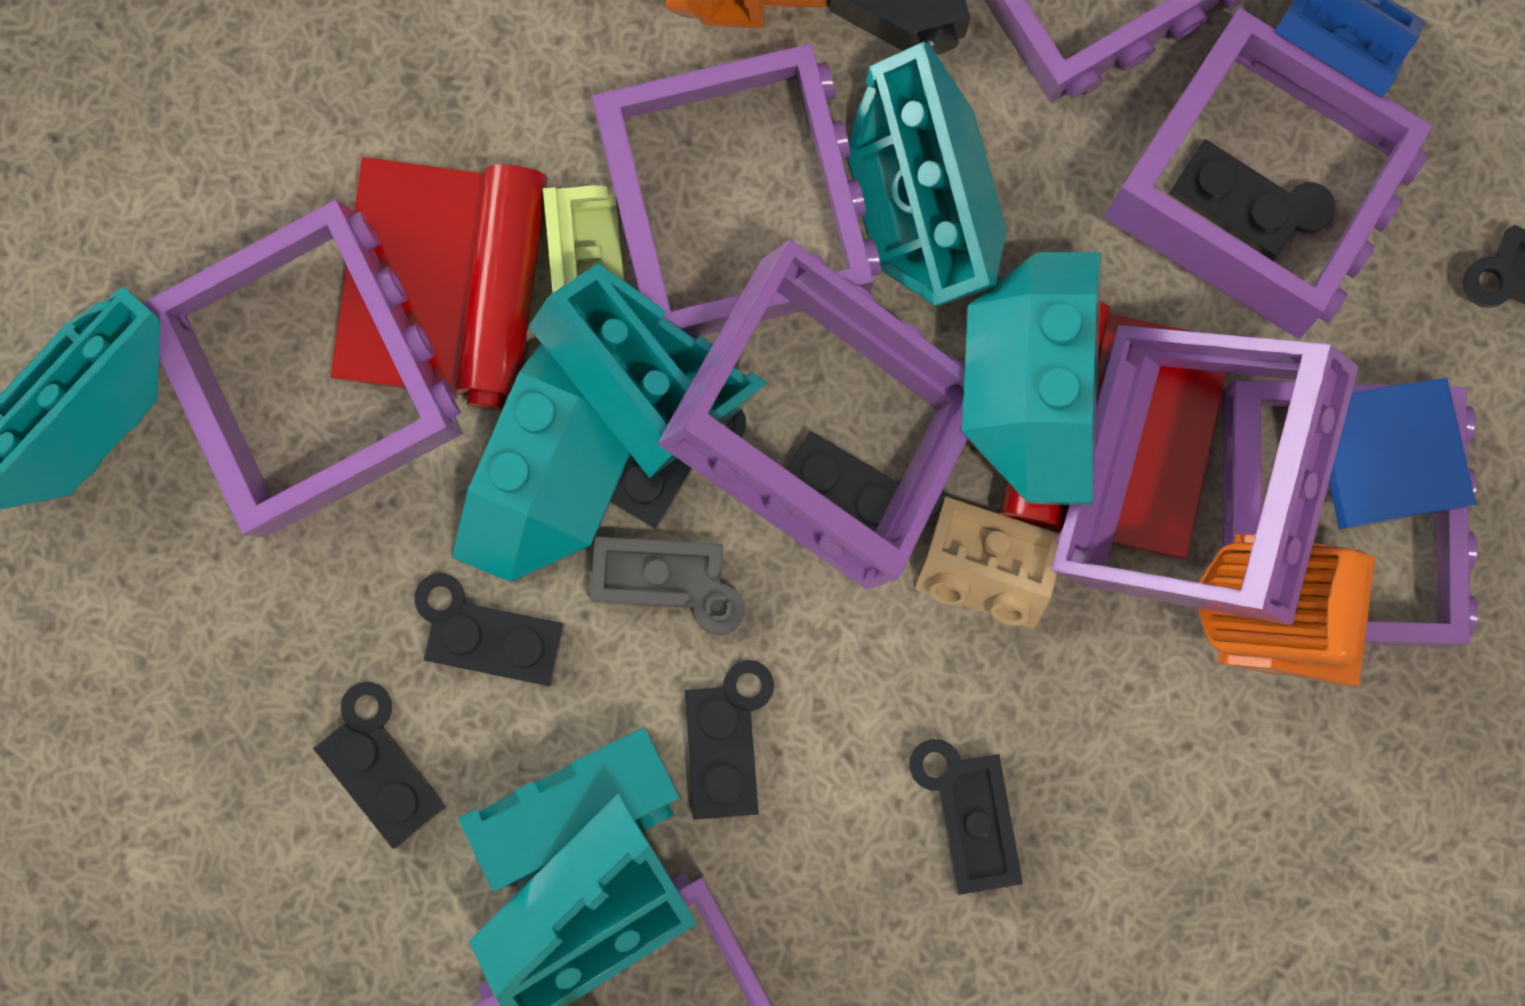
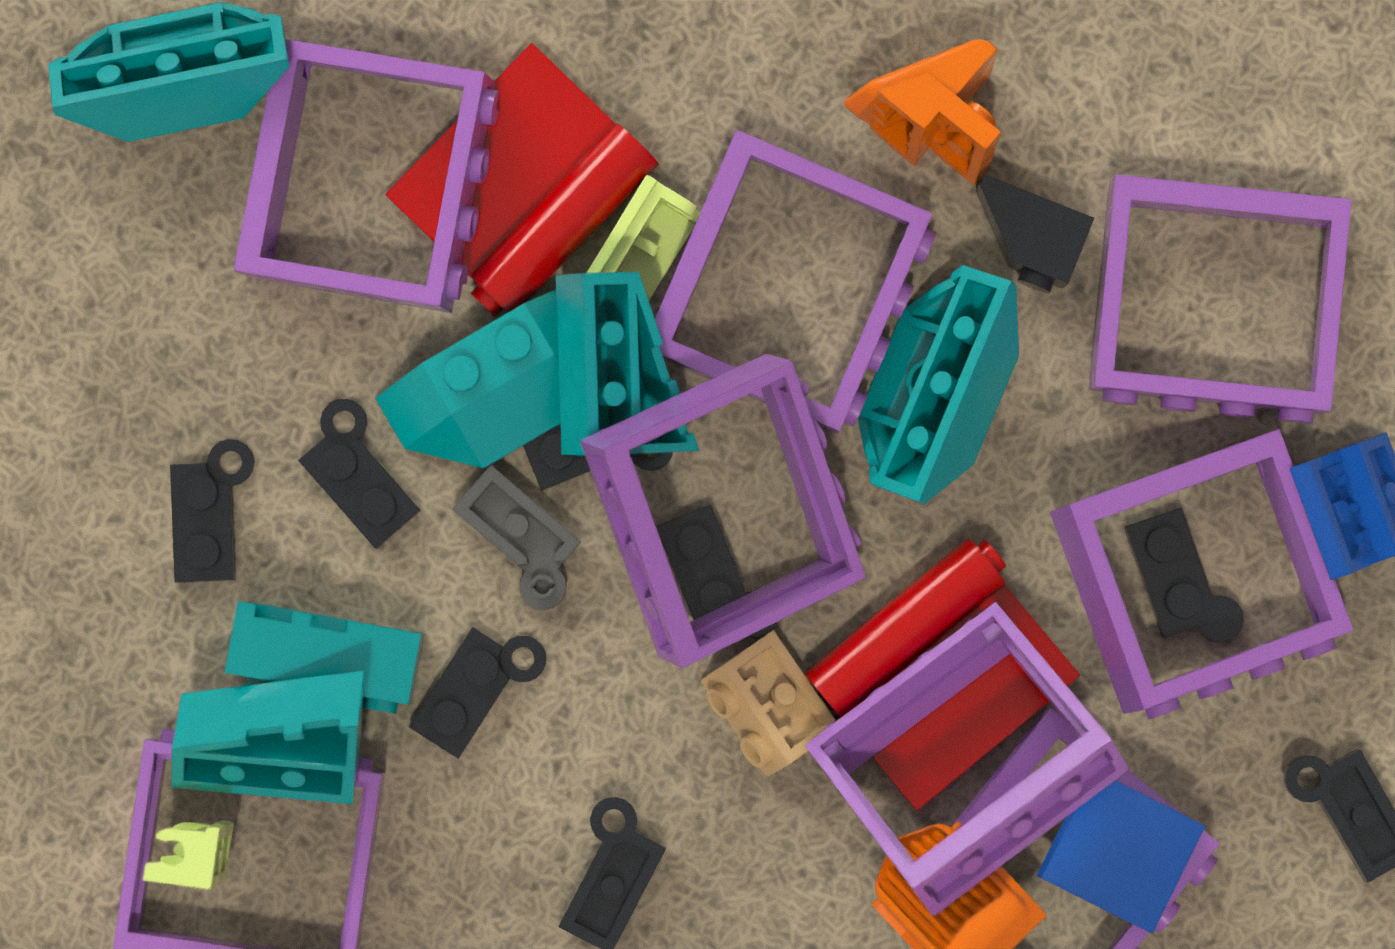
camera: 30 degrees right, 5 degrees up
(1037, 376) = (905, 593): teal wedge -> none

